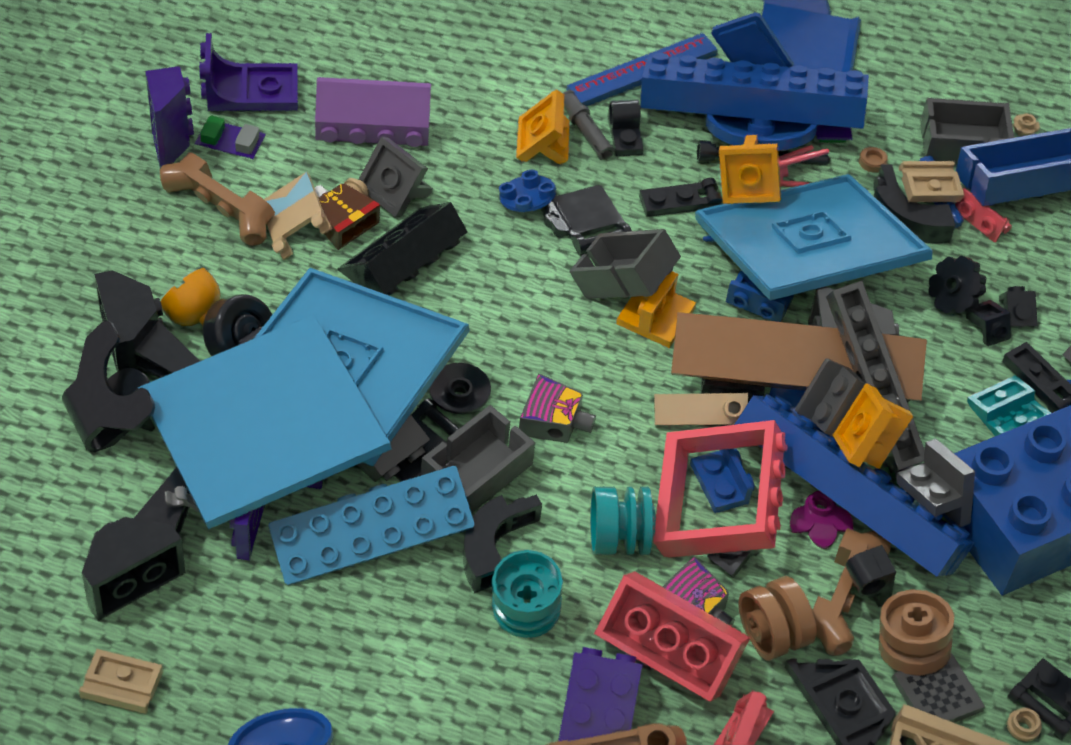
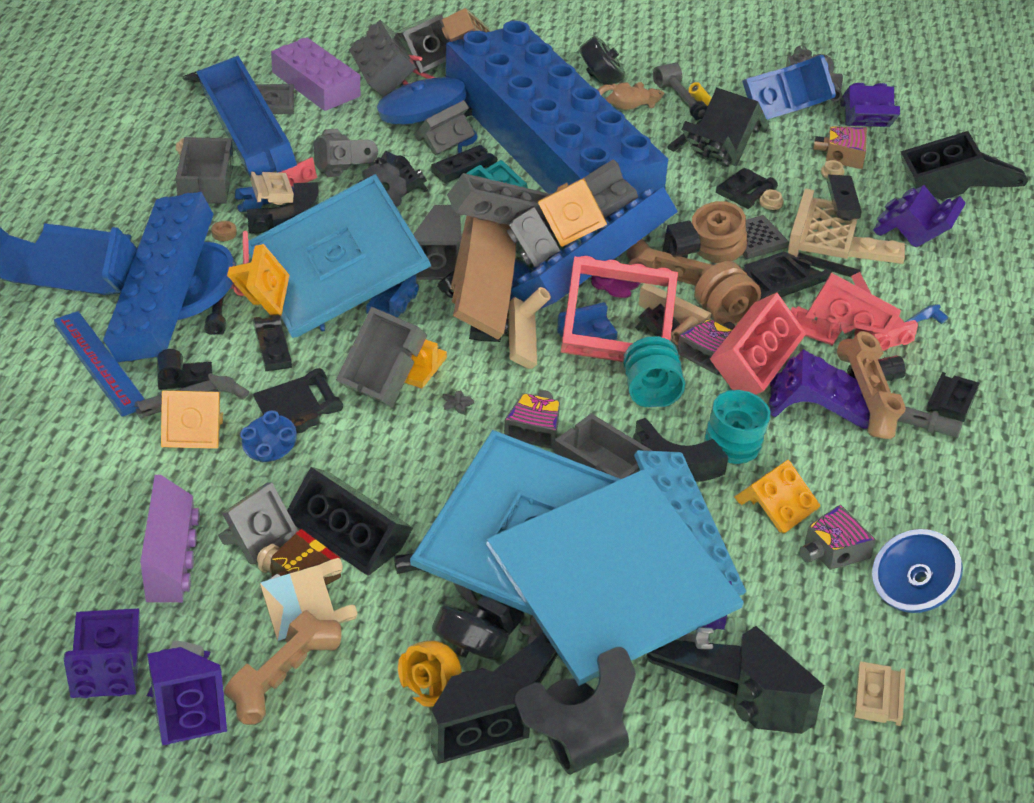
camera: 90 degrees left, 10 degrees down
(349, 677) = (837, 540): none -> dark grey torso
(422, 633) = (782, 496): none -> light orange bracket
(593, 351) = (459, 401): none -> dark grey plant
(606, 164) = (228, 385): none -> dark grey bar
(756, 572) = (684, 312): none -> tan piece
(1025, 247) = (337, 152): none -> dark grey piece

